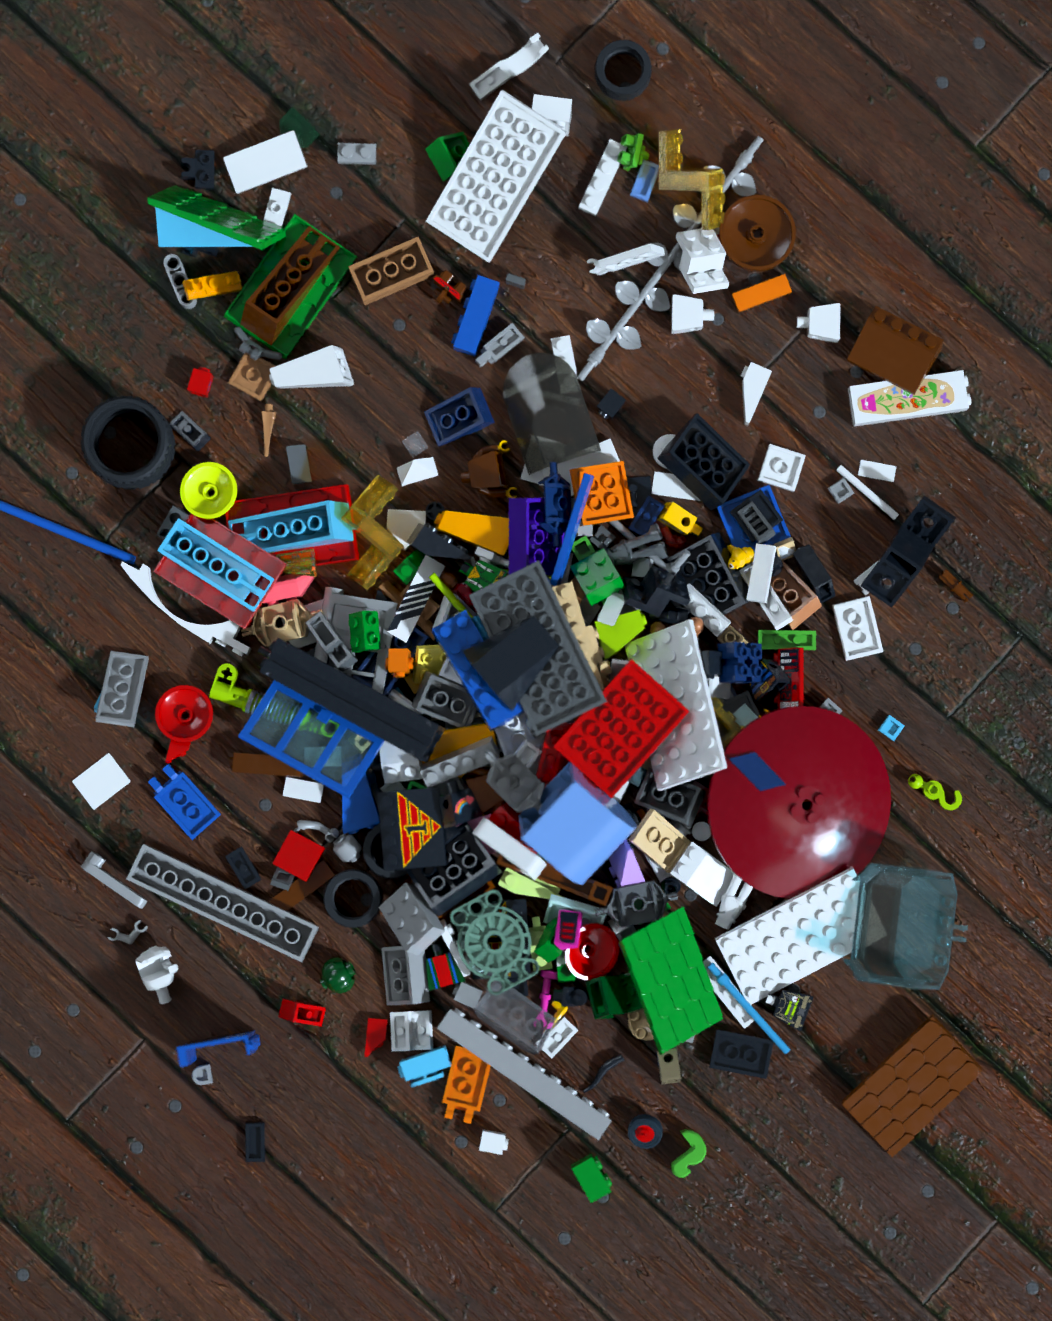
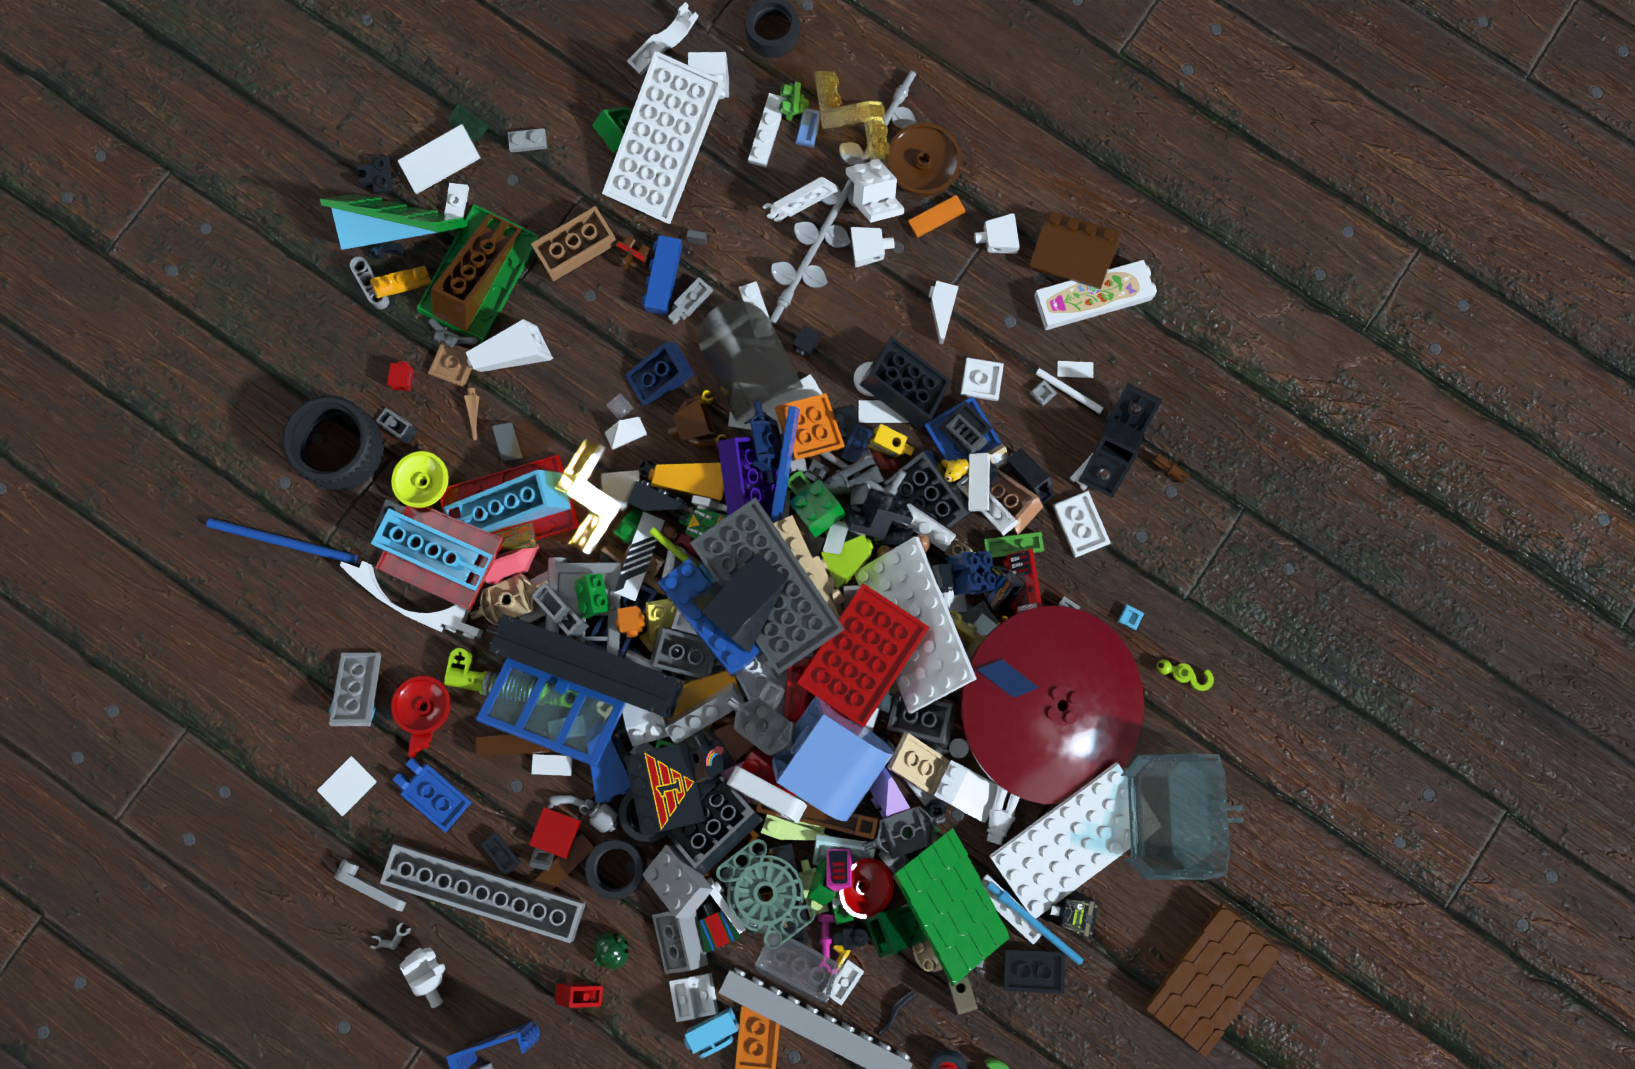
camera: 10 degrees left, 5 degrees down
(375, 1035) = (657, 1007): red slope -> none
(467, 994) = (745, 951): light grey brick -> none

